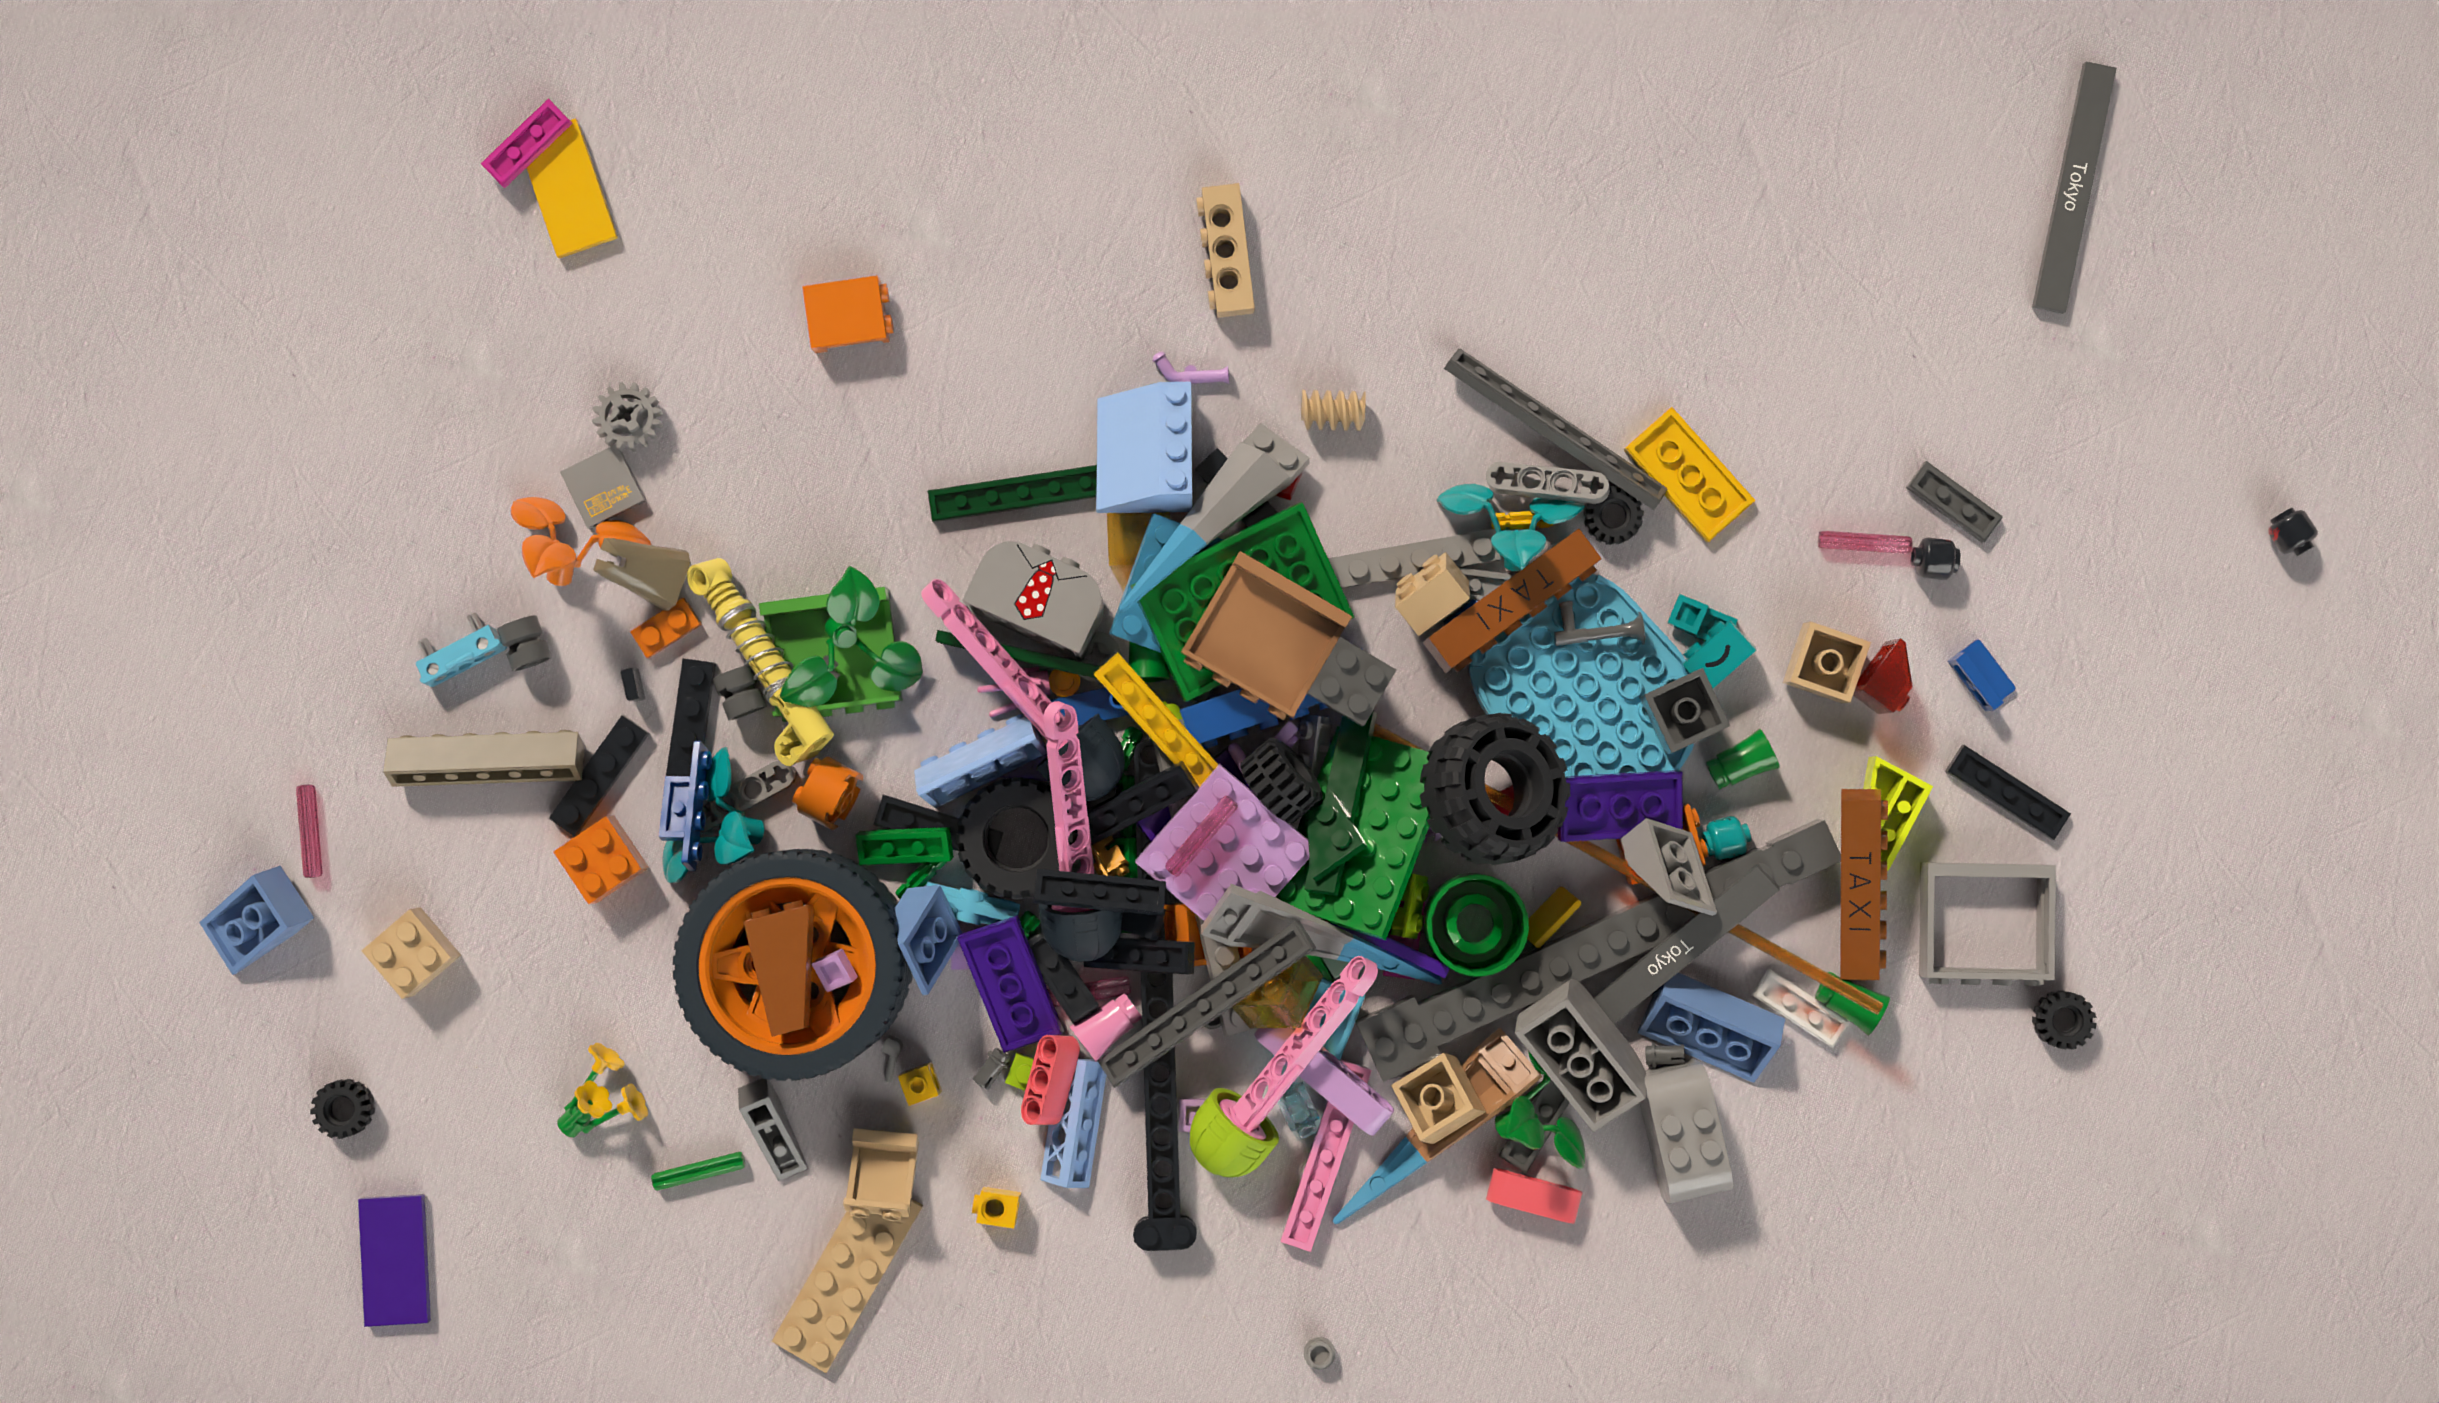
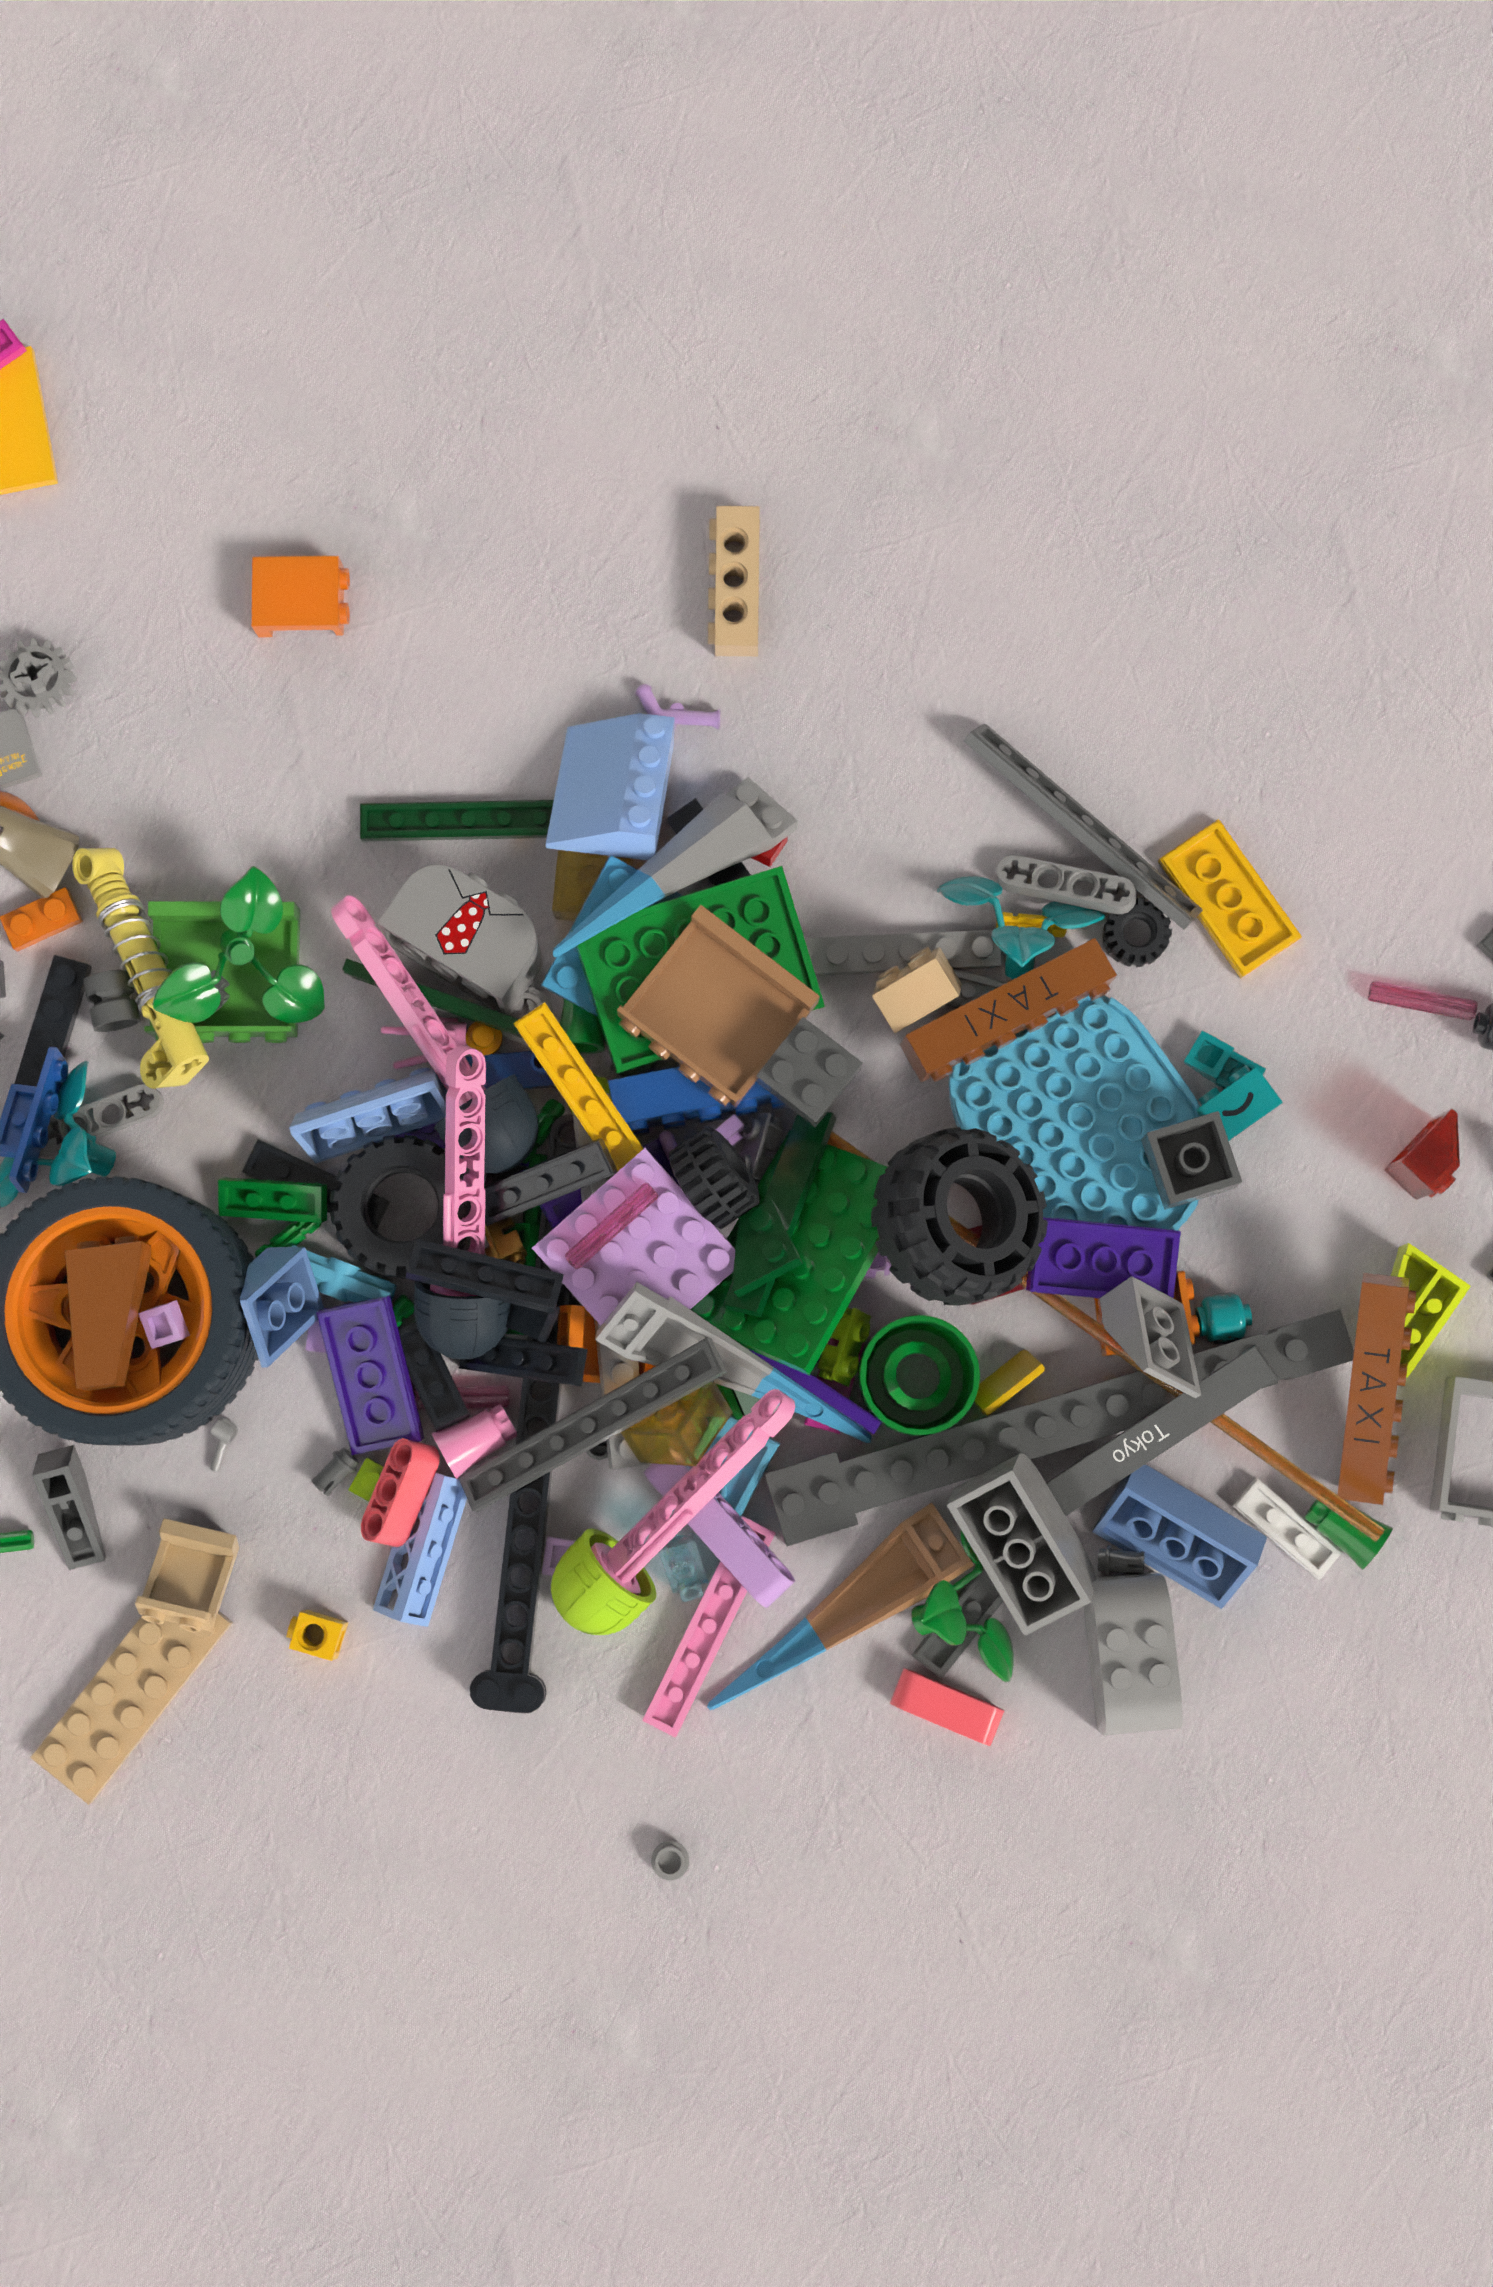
camera: 10 degrees right, 5 degrees down
(828, 792) = (194, 1126): orange brick -> none
(920, 1083) = (249, 1477): yellow brick -> none
(1333, 410) = (831, 772): tan piece -> none
(1438, 1098) = (848, 1574): tan brick -> none
(1572, 635) = (1070, 1059): dark grey piece -> none
(1743, 760) = (1253, 1230): green plant -> none
(1826, 662) = (1363, 1129): tan brick -> none

